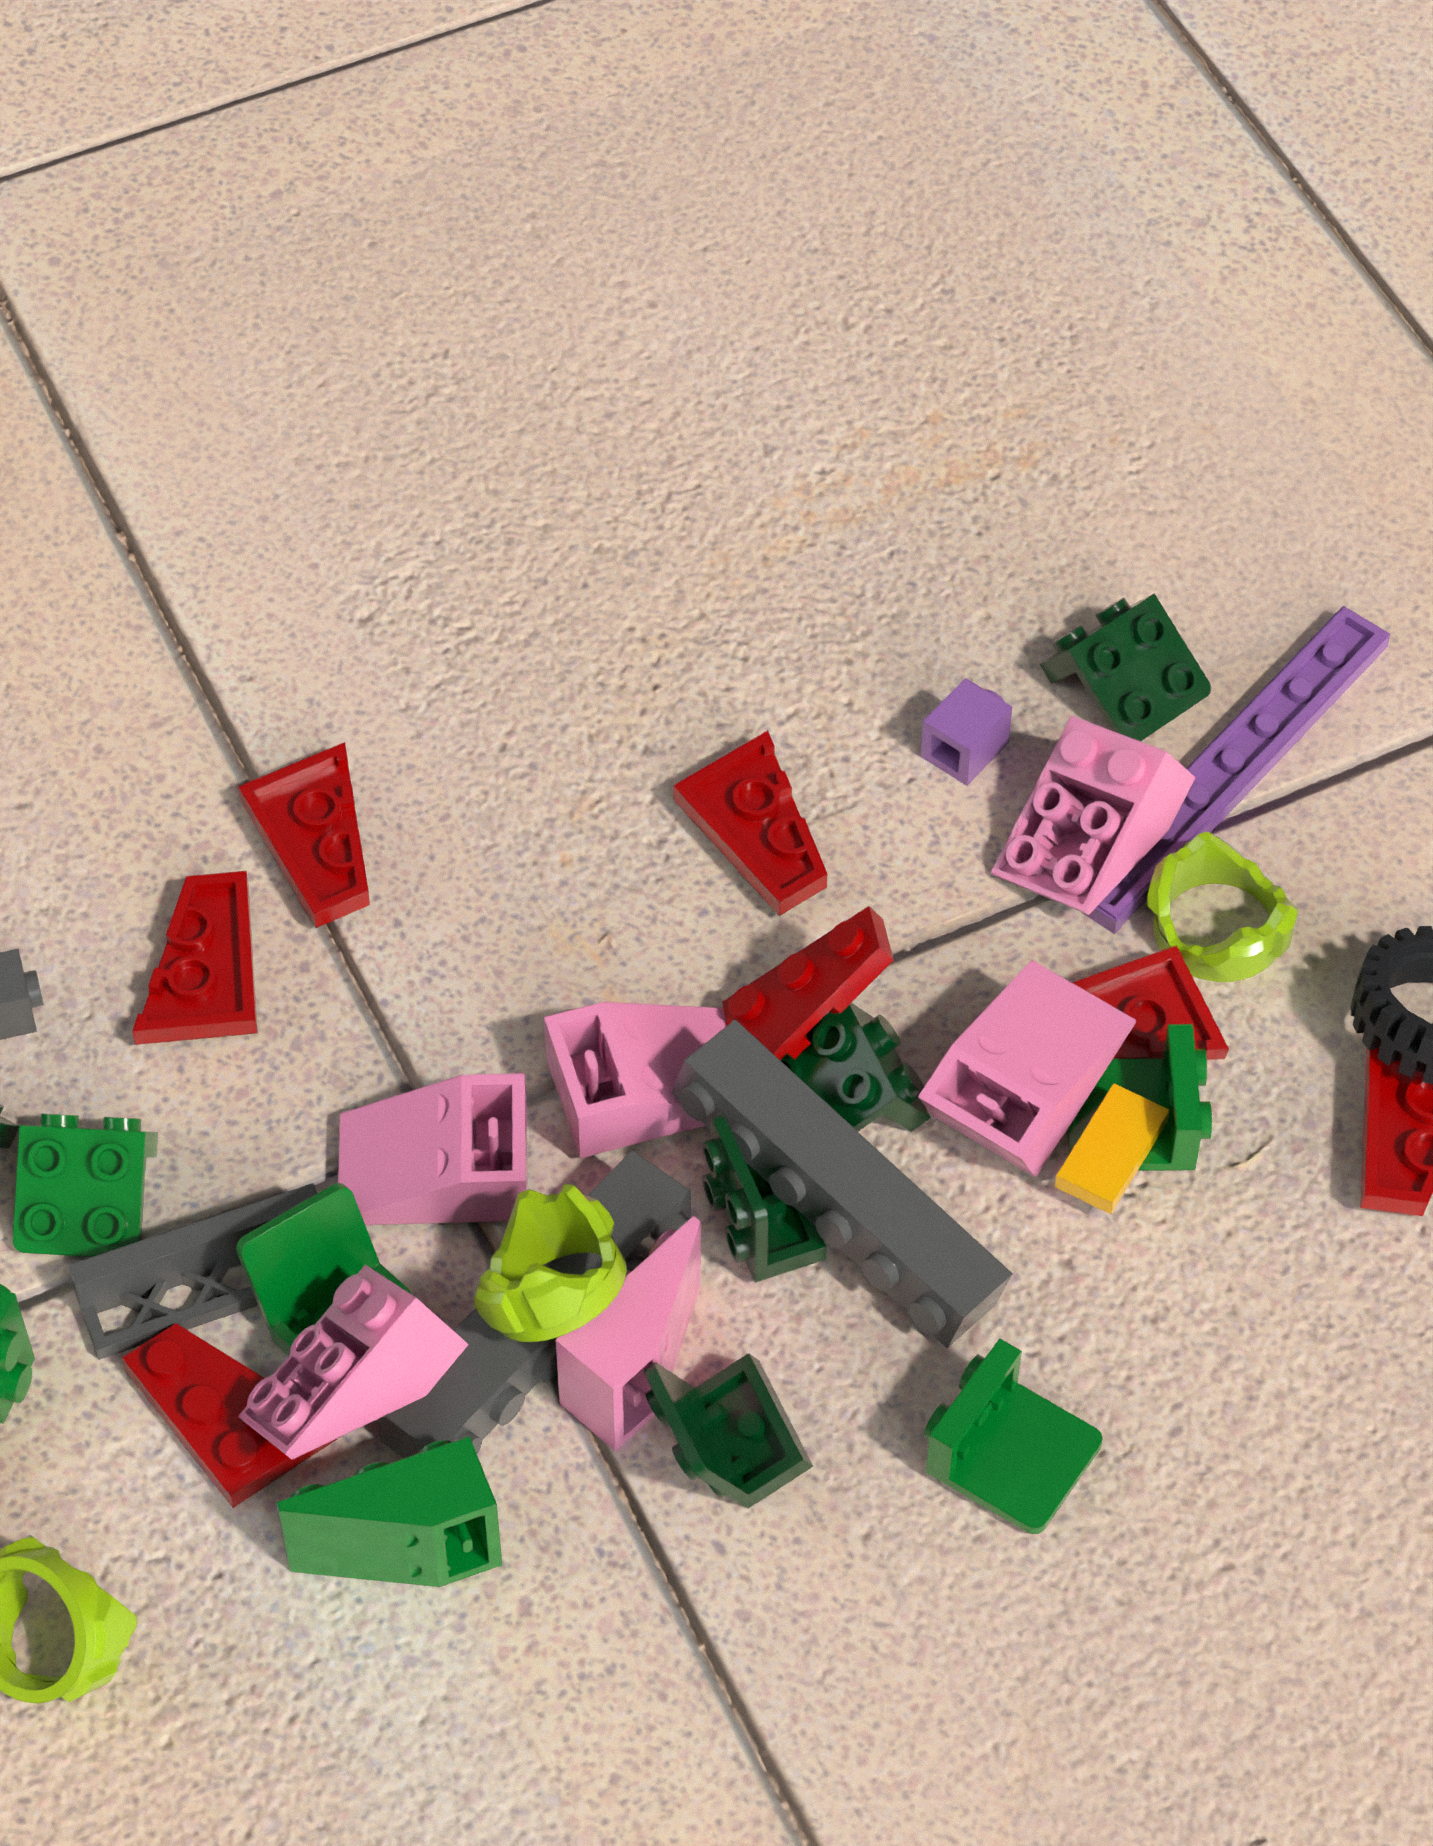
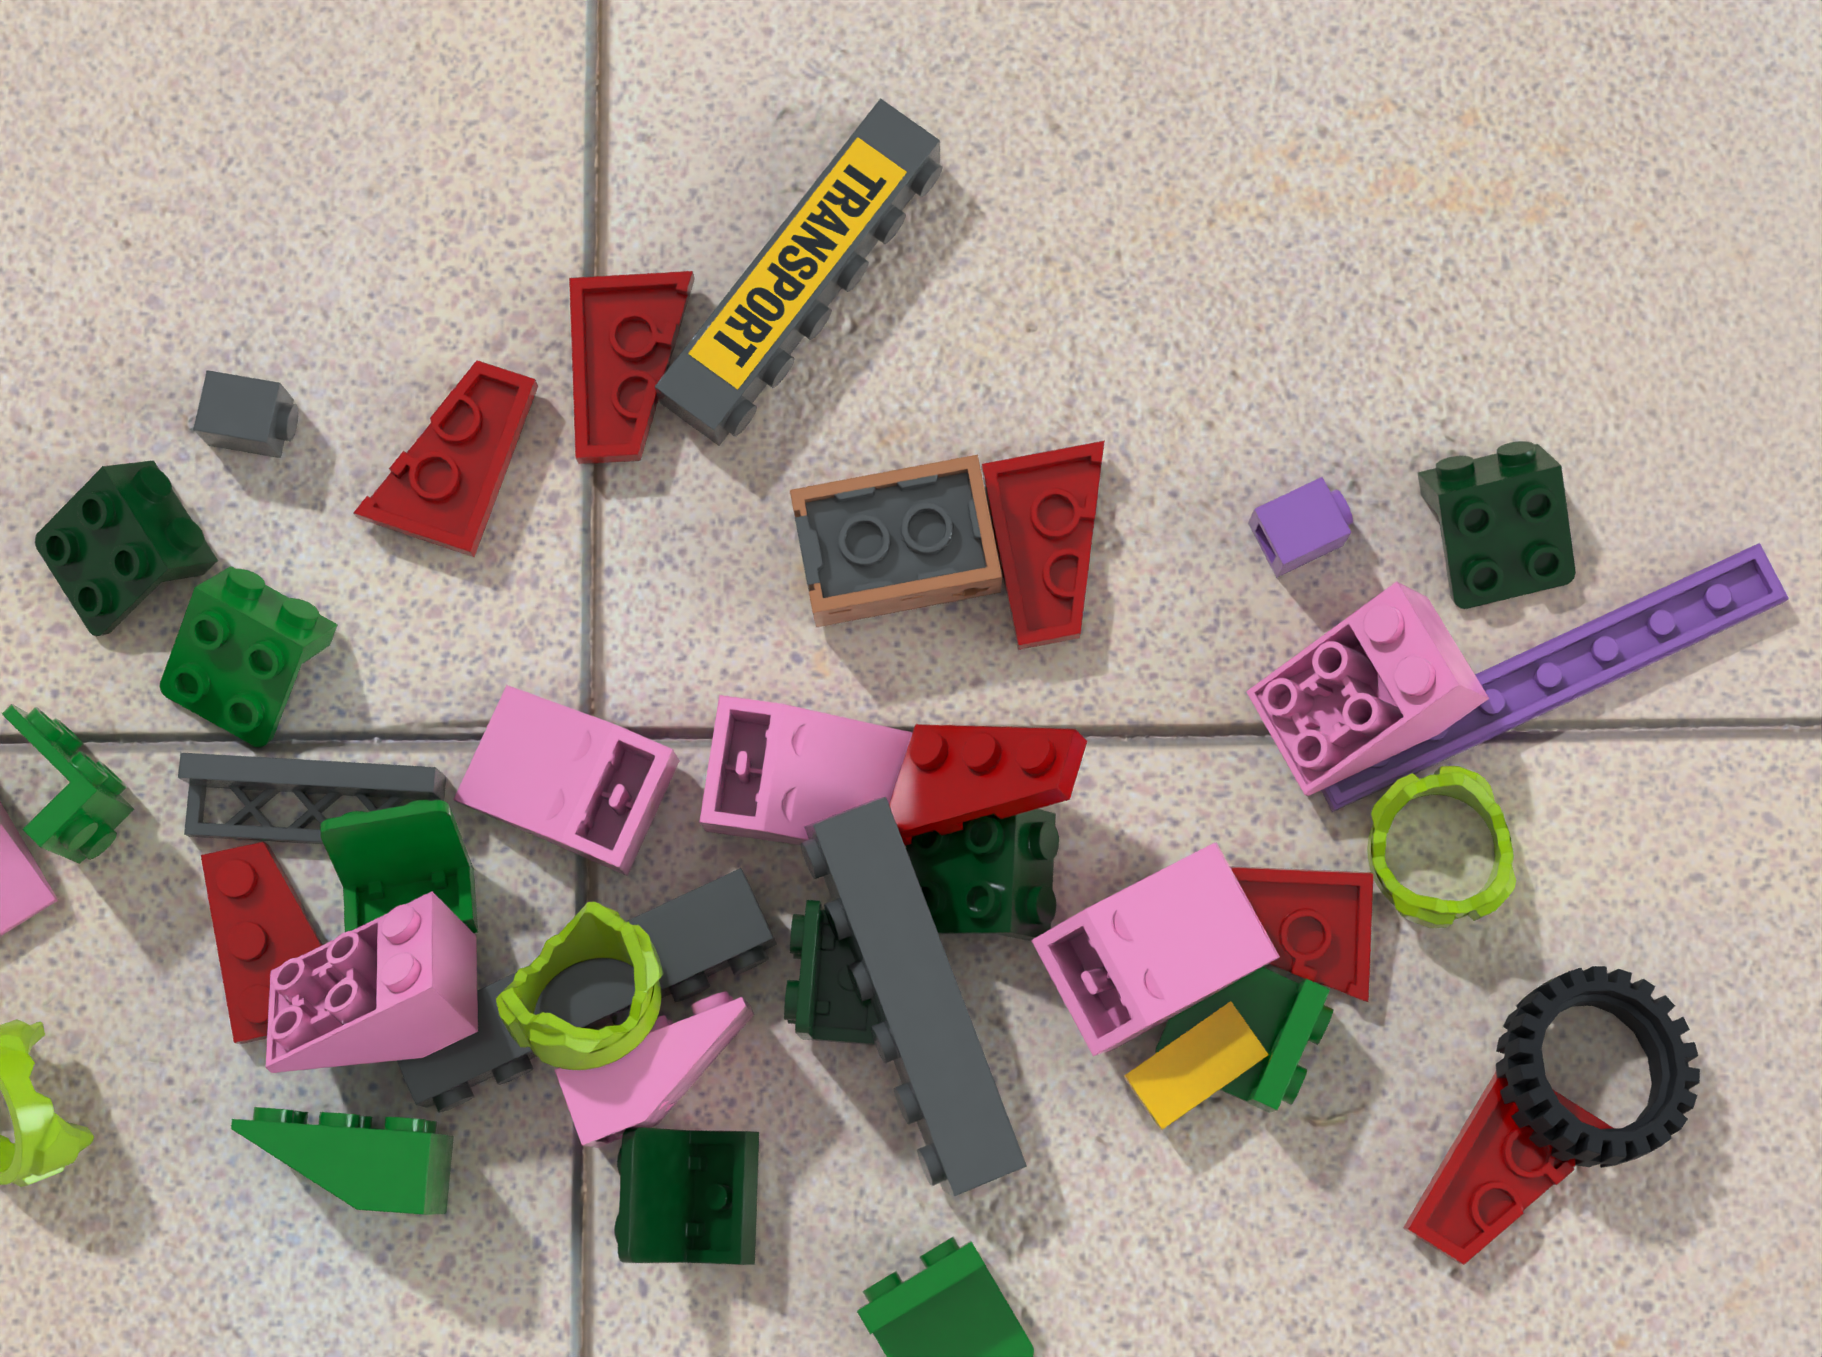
camera: 30 degrees right, 25 degrees up
(439, 715) = (800, 273): none -> brick
(632, 863) = (896, 541): none -> dark grey piece

